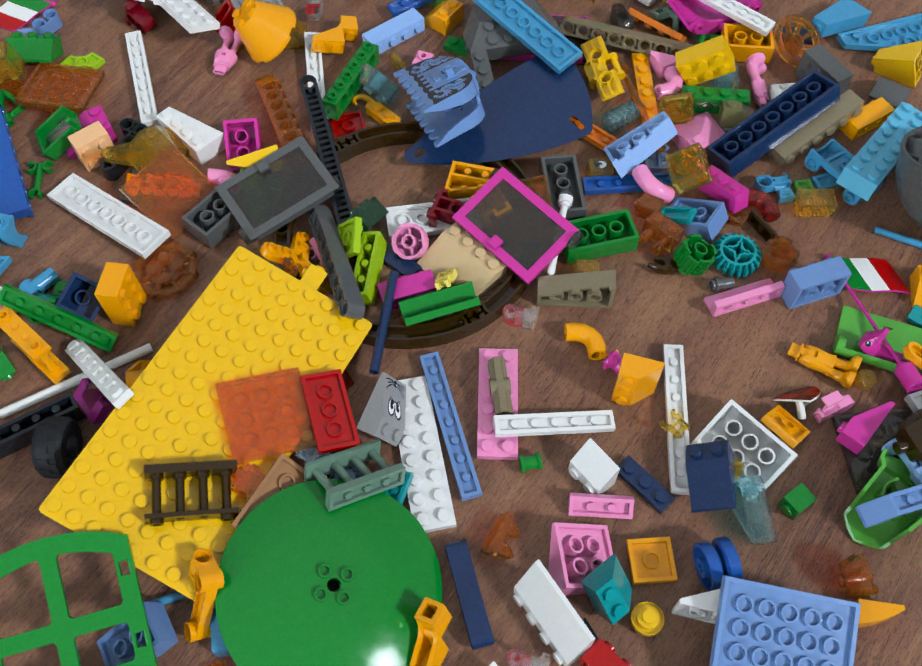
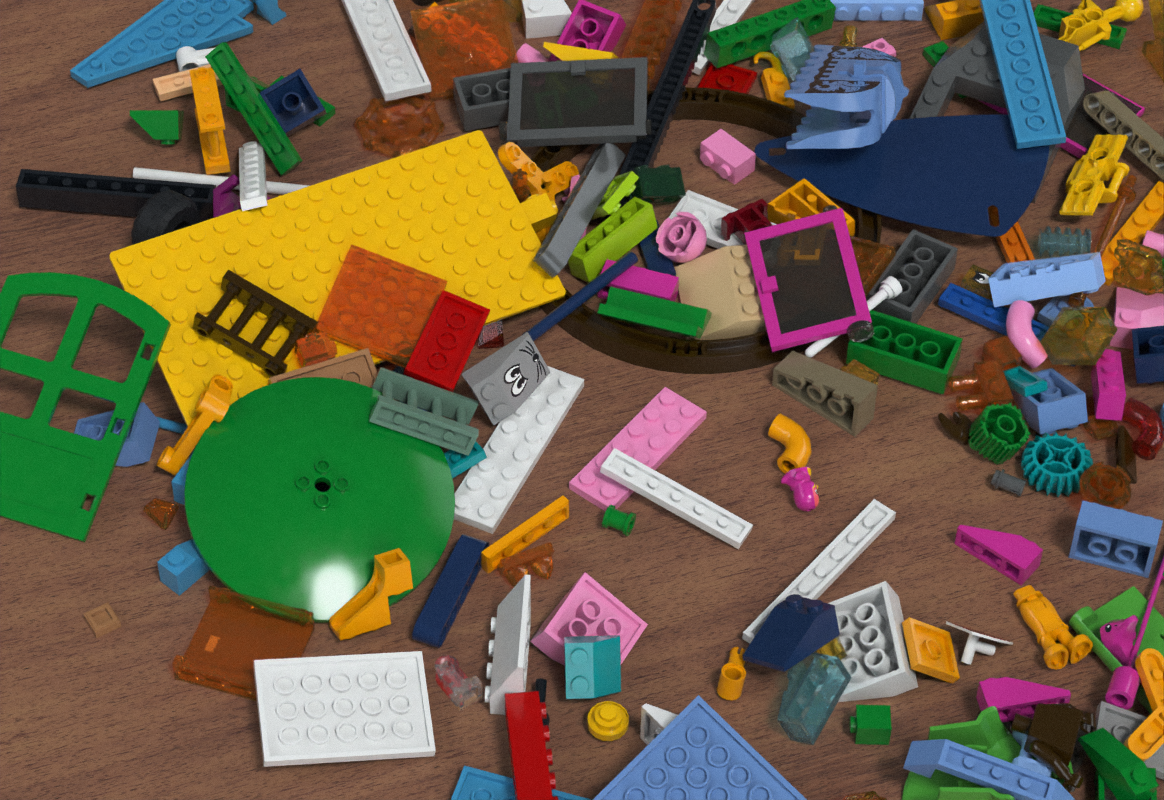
camera: 35 degrees right, 10 degrees down
(40, 283) = (264, 69): dark azure piece -> none
(120, 294) = (331, 120): light orange brick -> none
(389, 172) = (727, 156): none -> bright pink brick
(445, 278) = (686, 295): light yellow plate -> none
(450, 427) = (567, 436): medium blue plate -> none
(482, 515) = (525, 533): none -> light orange tile
(500, 386) = (649, 427): dark tan piece -> none
(521, 317) = (740, 384): clear leg -> none
(593, 468) = (675, 562): white slope -> none
(601, 505) = (655, 600): bright pink plate -> none
(636, 379) = (797, 503): light orange slope -> none
(645, 484) = (723, 613): dark blue plate -> none
(651, 560) = (662, 678): light orange plate -> none
(677, 433) = (796, 575): clear yellow piece -> none
(690, 524) = (732, 676): none -> light orange pin
(715, 560) = (730, 706): blue wheel -> none
(743, 296) = (1022, 512): bright pink panel -> none
(762, 330) = (1002, 551): none -> dark pink slope
(834, 405) = (998, 663): bright pink piece -> none
(865, 379) = (1078, 669): clear yellow piece -> none

